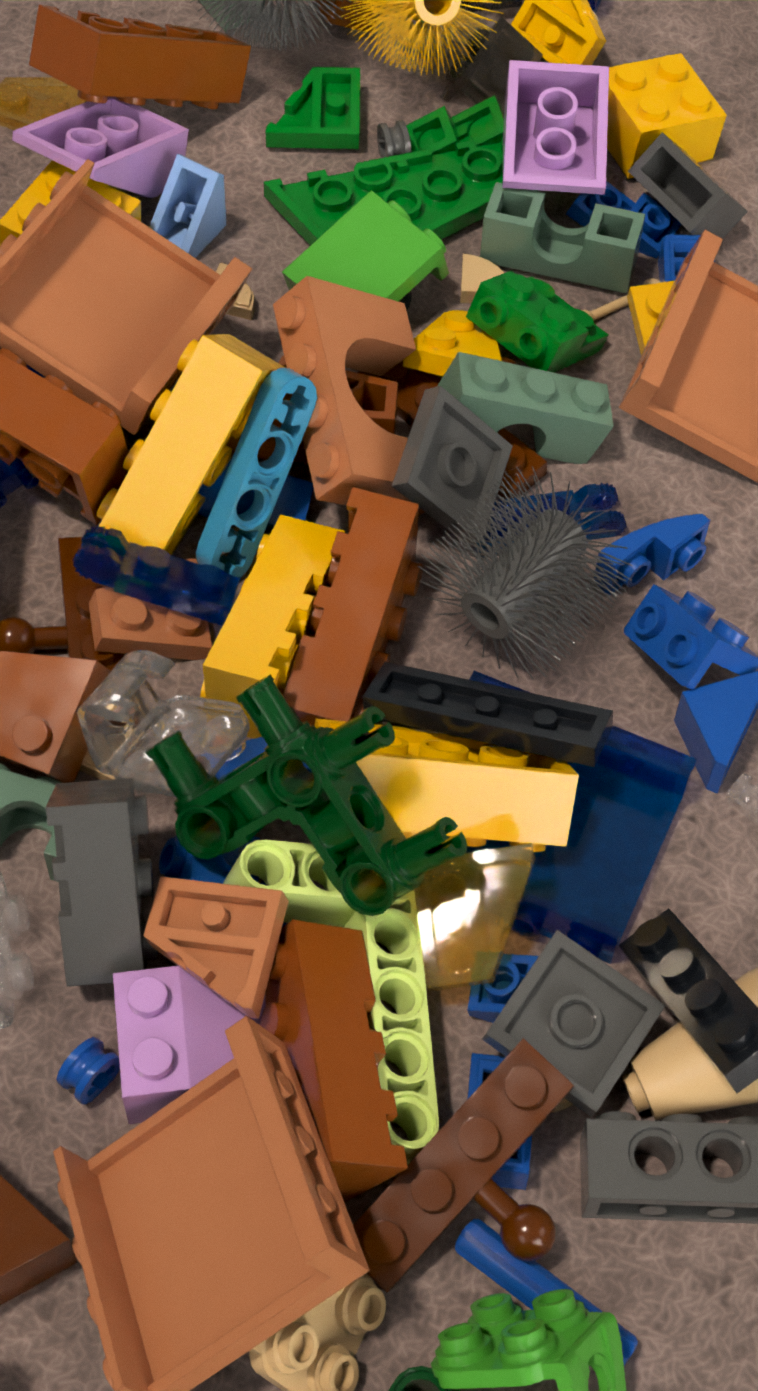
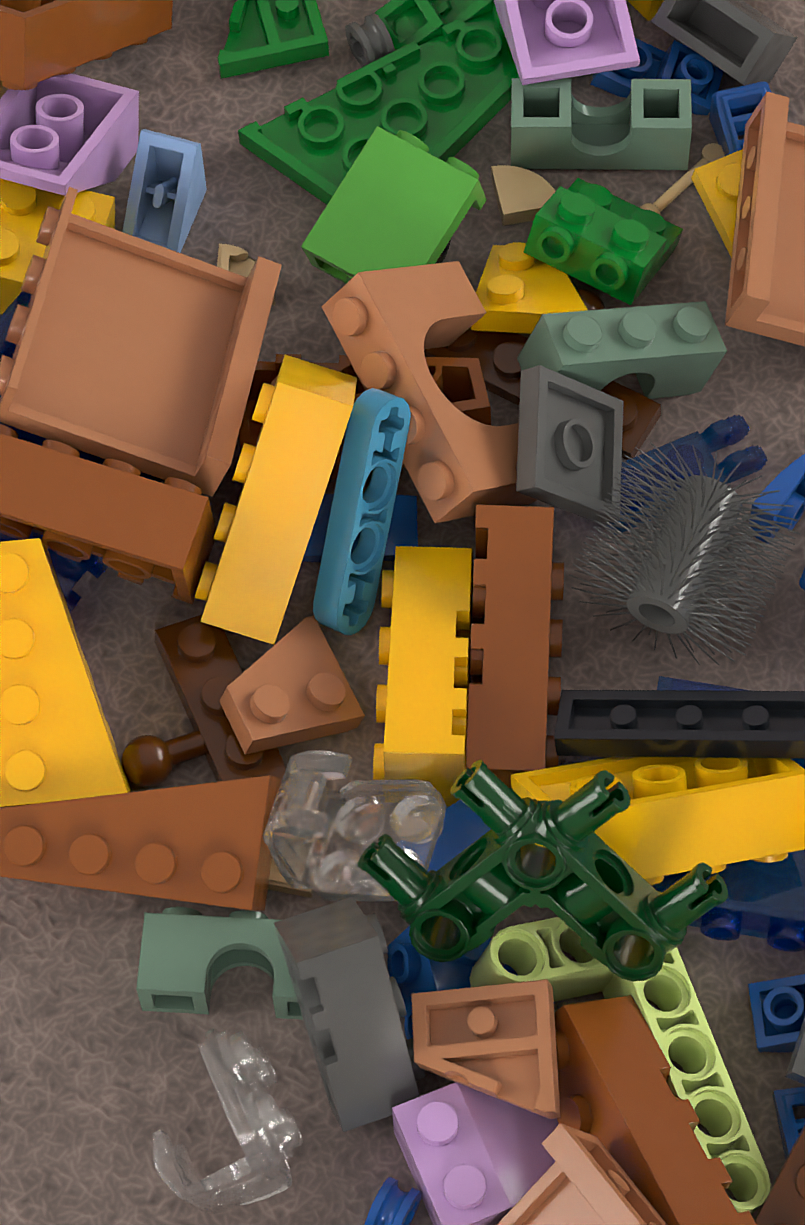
camera: 10 degrees left, 5 degrees up
(155, 575) = (287, 653): clear blue hinge -> none
(469, 914) = (737, 951): clear yellow wing -> none

